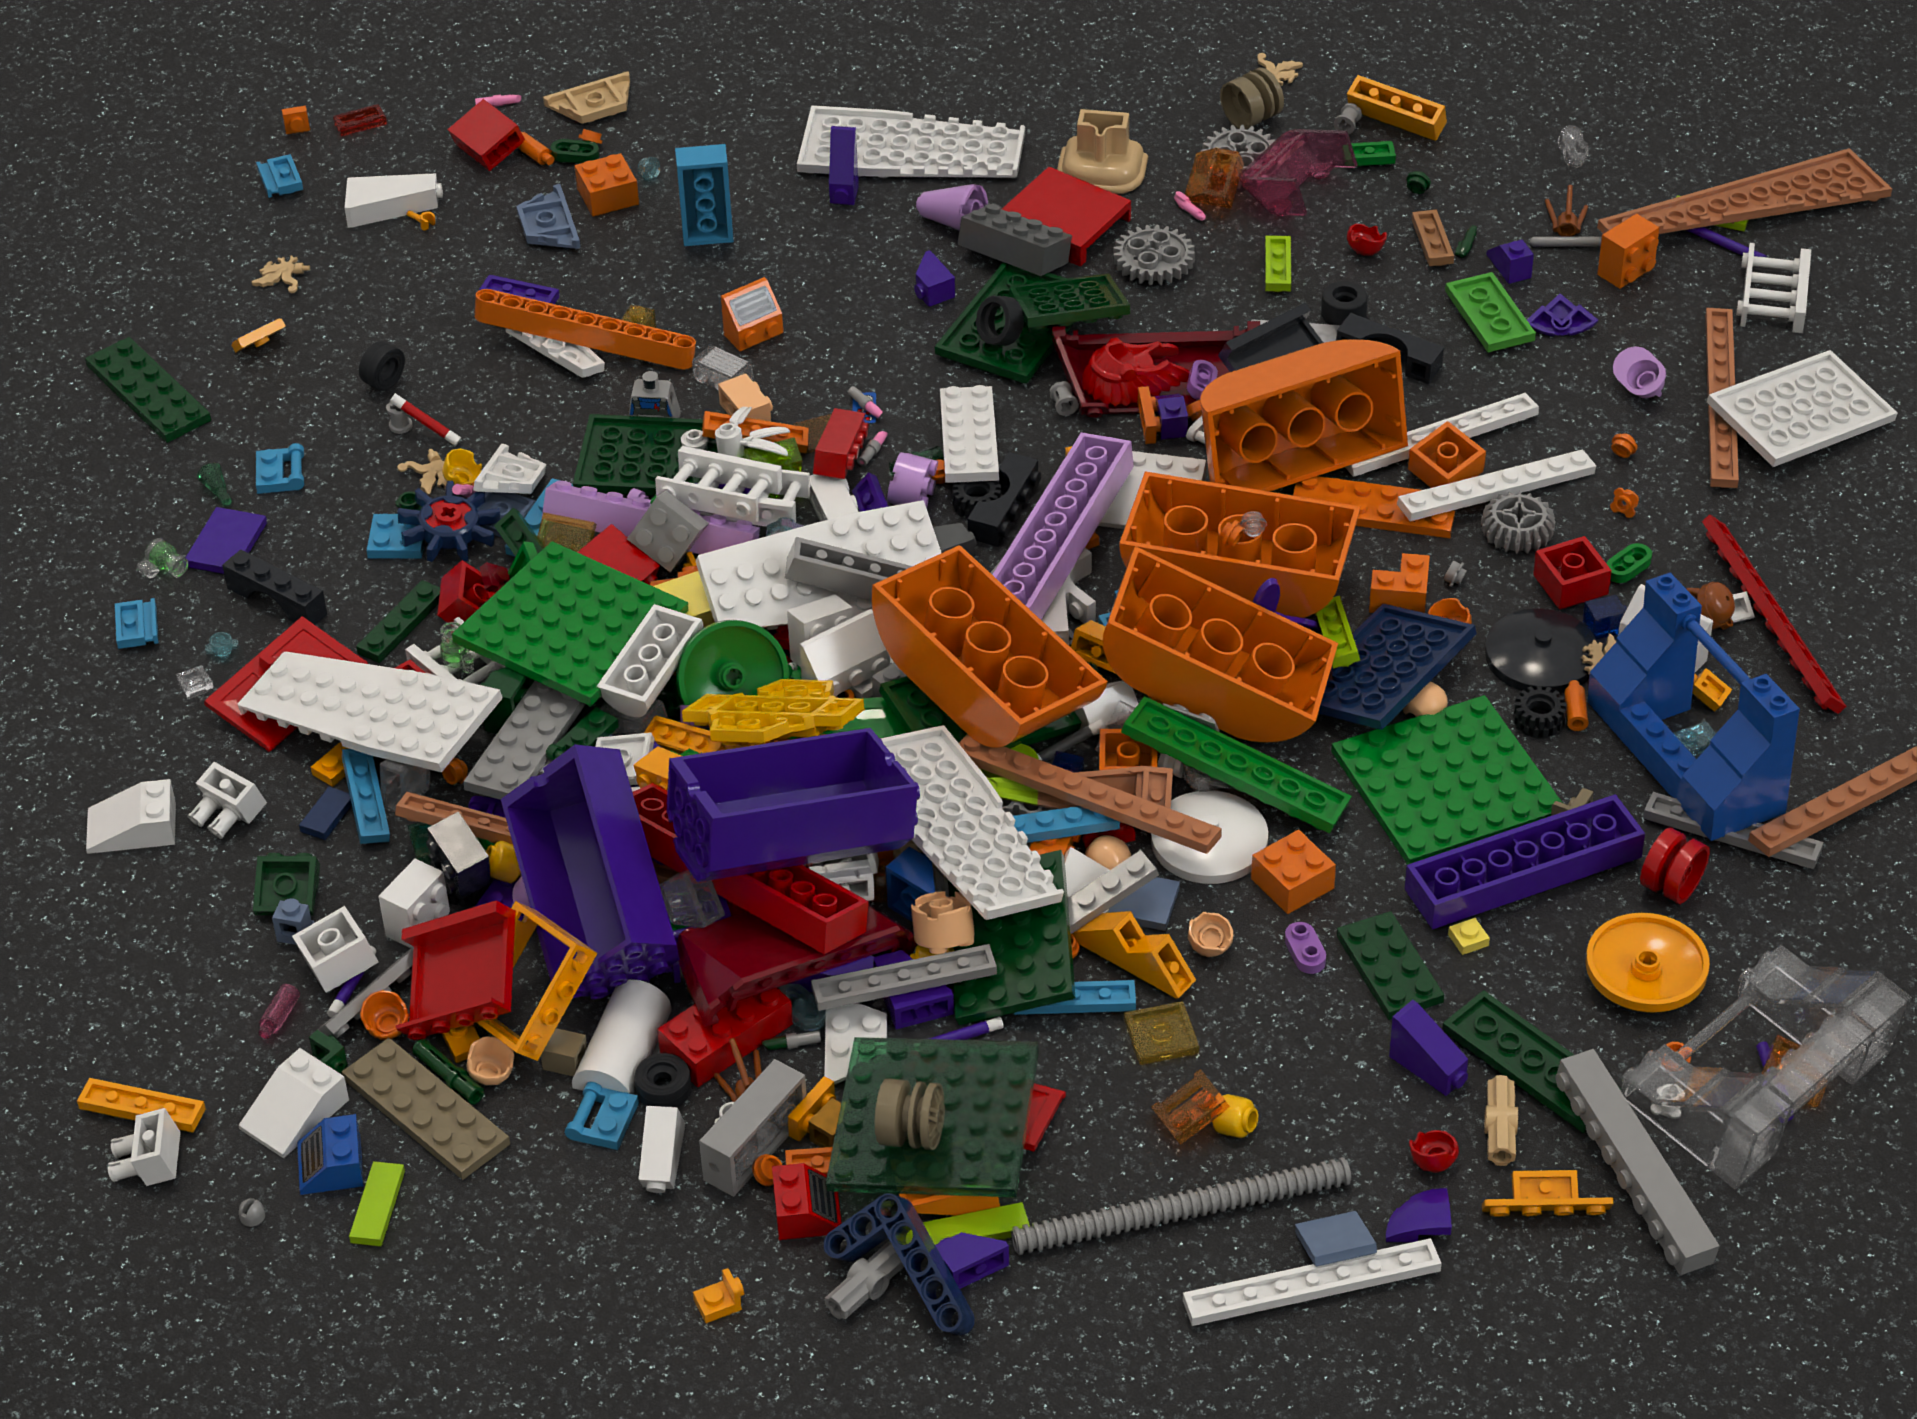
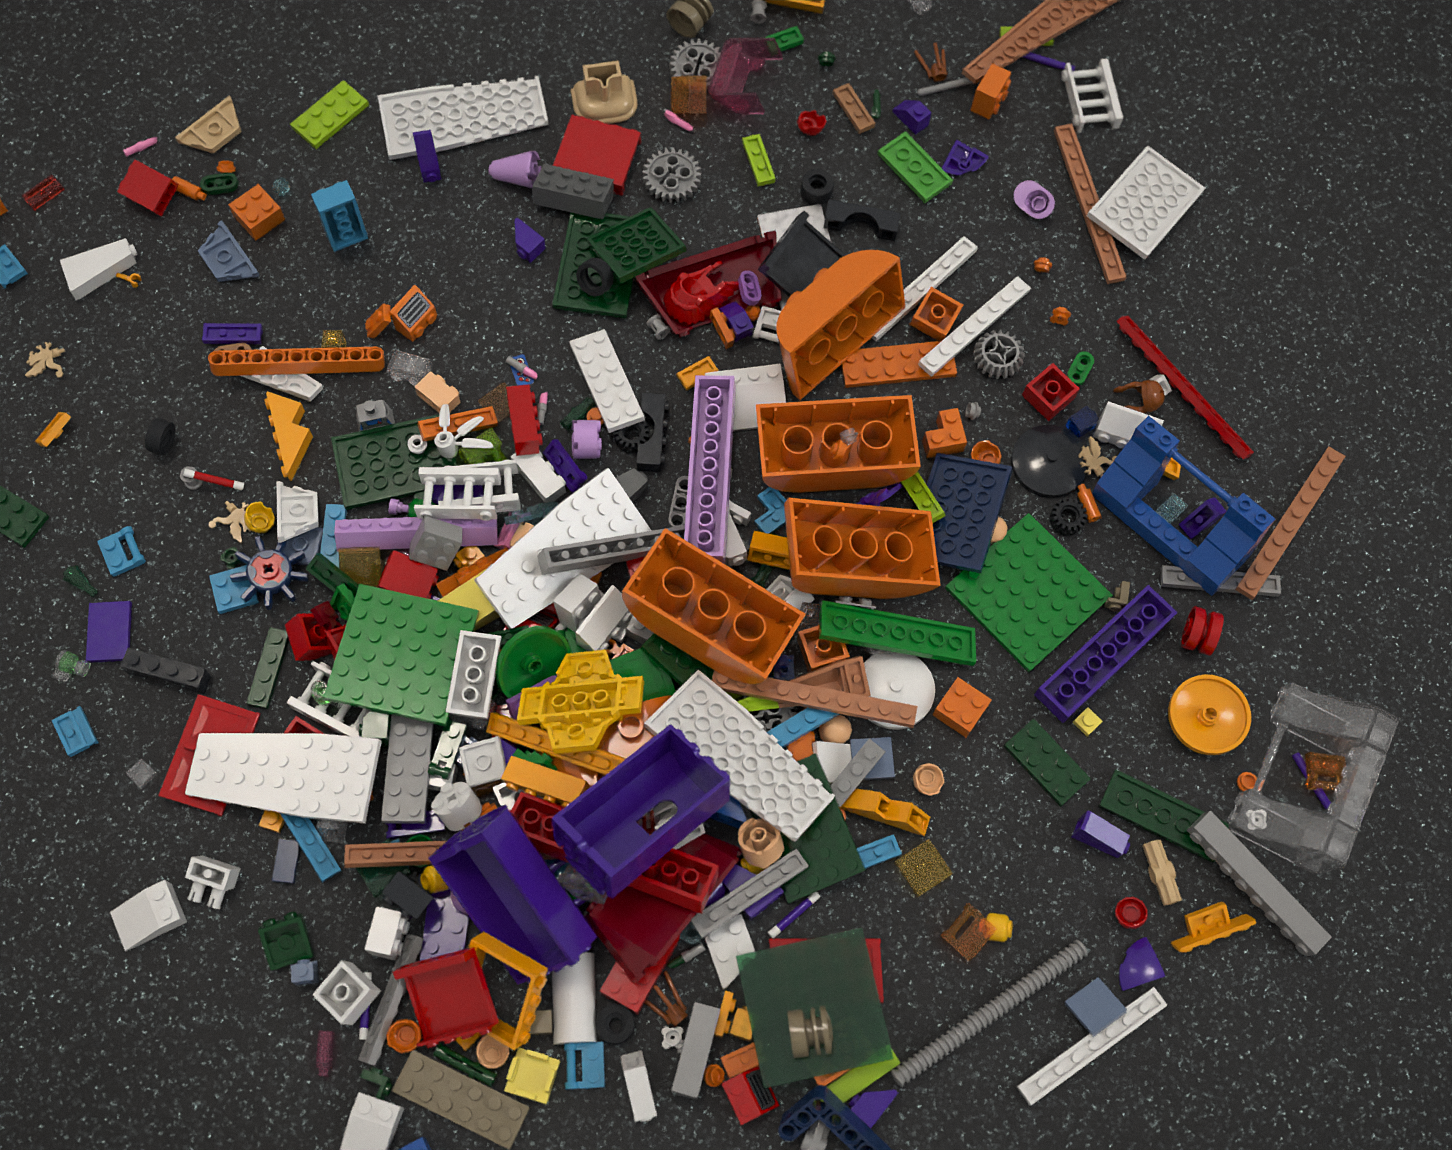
camera: 25 degrees left, 25 degrees up
(221, 645) = (143, 727): clear light blue plate -> none
(463, 490) = (270, 539): bright pink piece -> none
(528, 1103) = (532, 1075): none -> light yellow panel
(543, 399) = (291, 436): none -> light orange slope
(707, 308) = (378, 321): none -> orange plate
(743, 115) = (329, 114): none -> lime plate
(1302, 942) = (987, 765): medium lavender plate -> none

